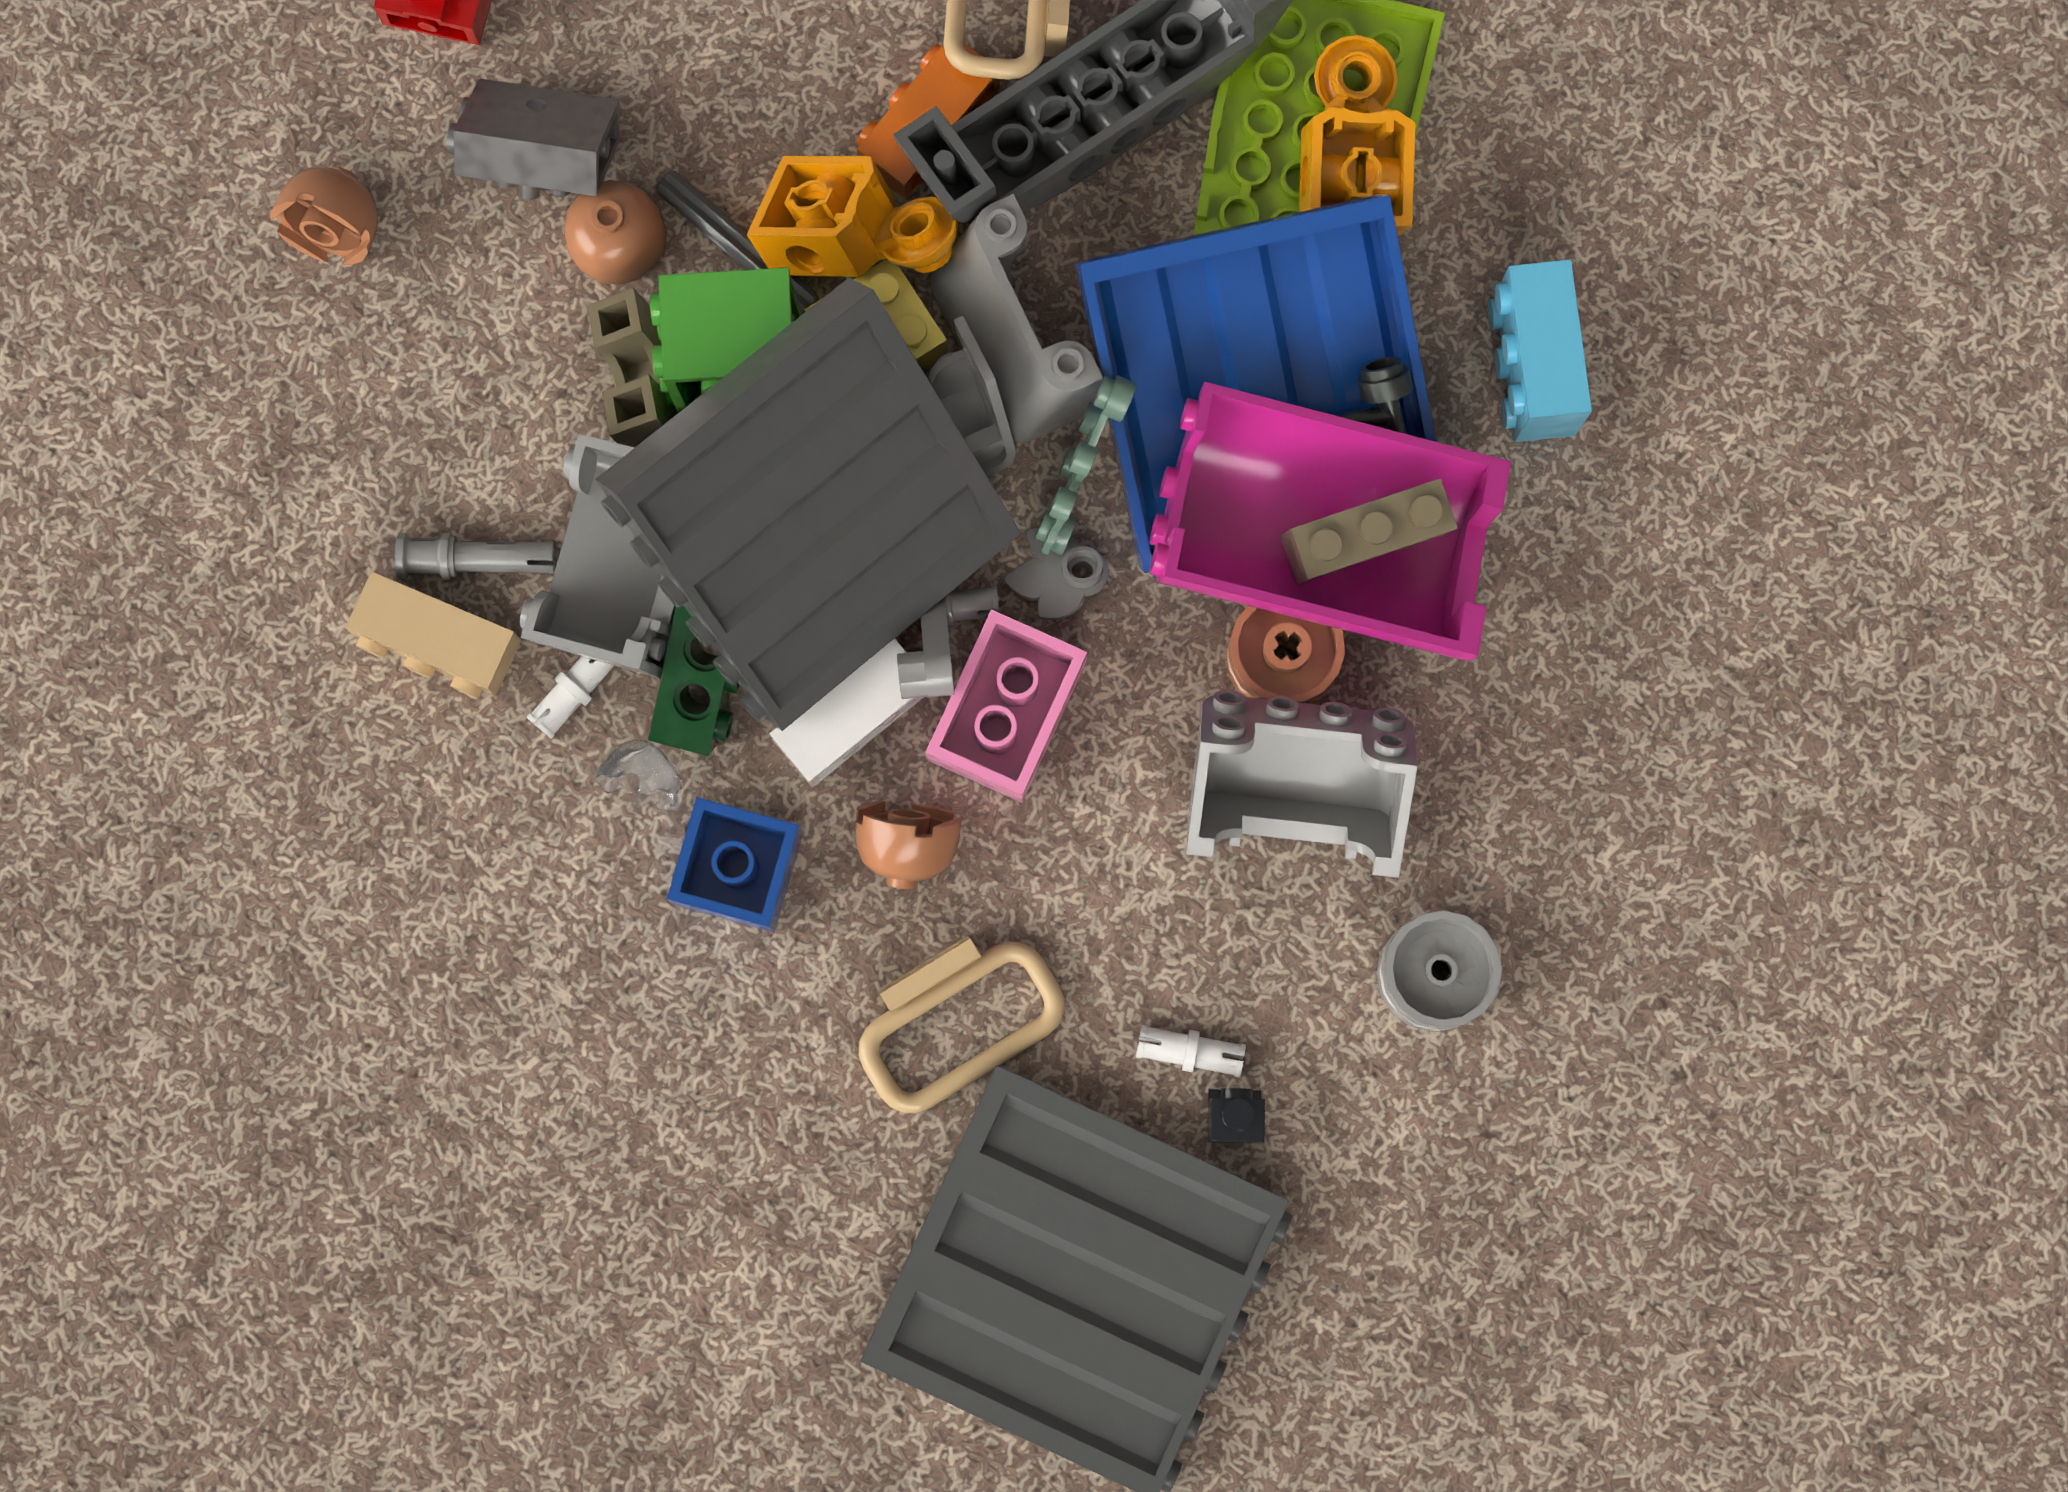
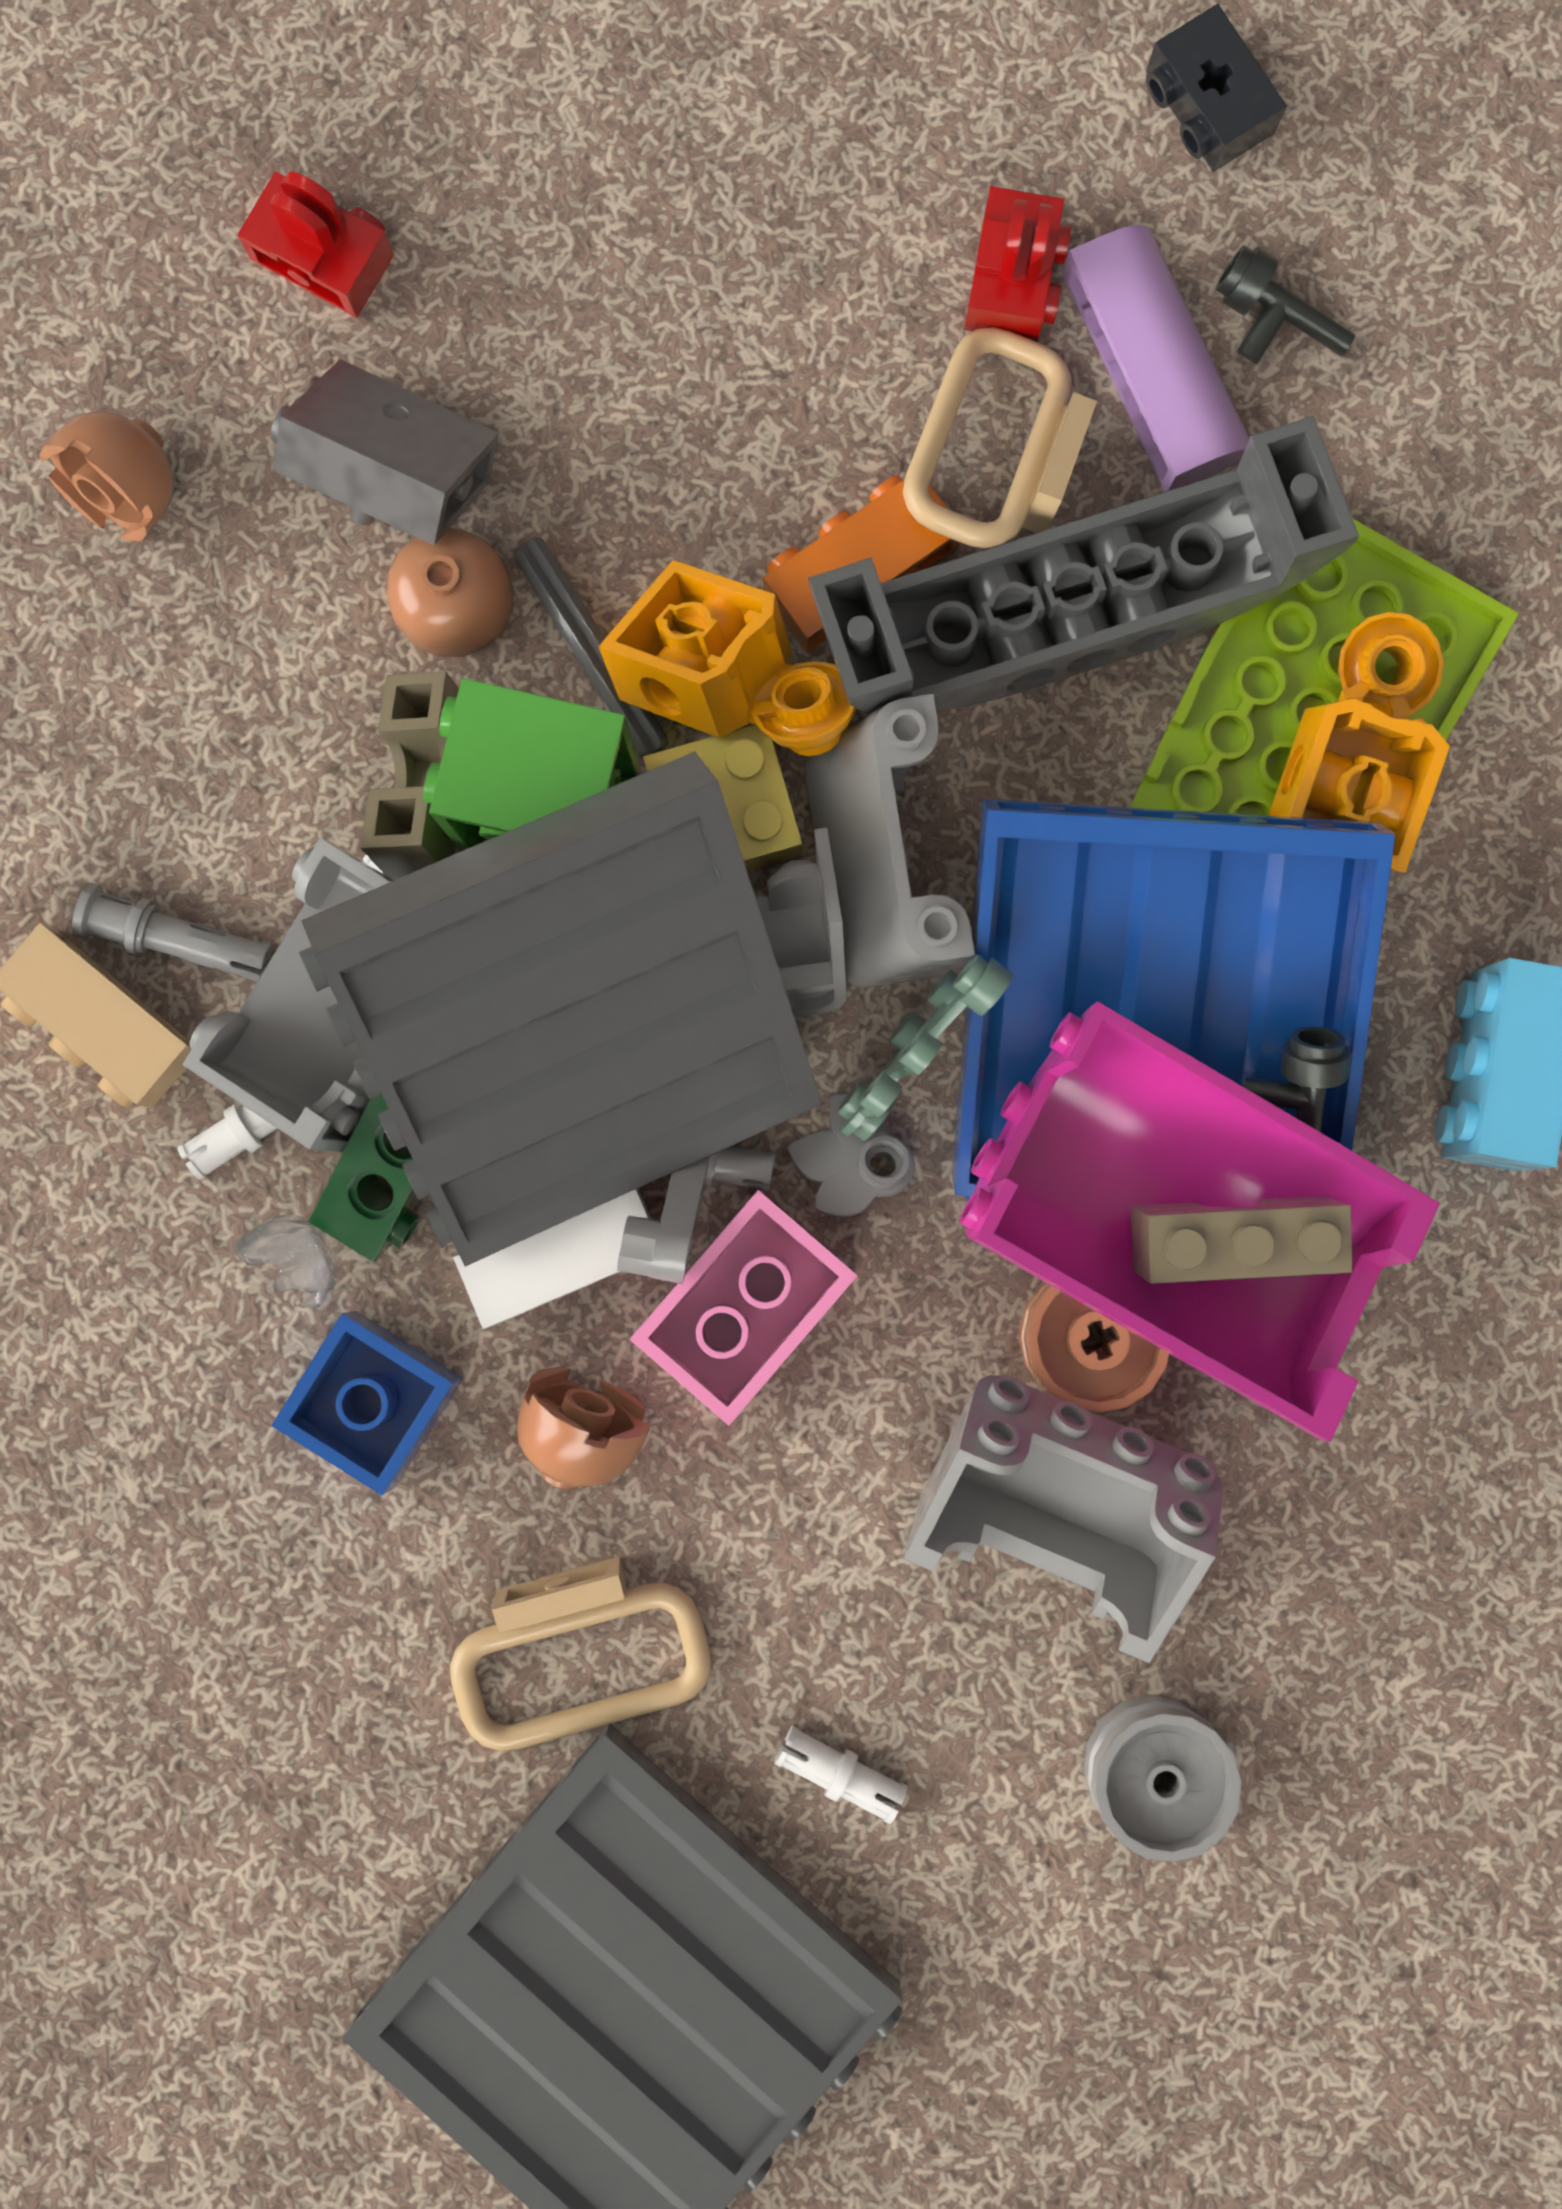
camera: 15 degrees right, 5 degrees up
(1236, 1116) = (870, 1874): black brick -> none

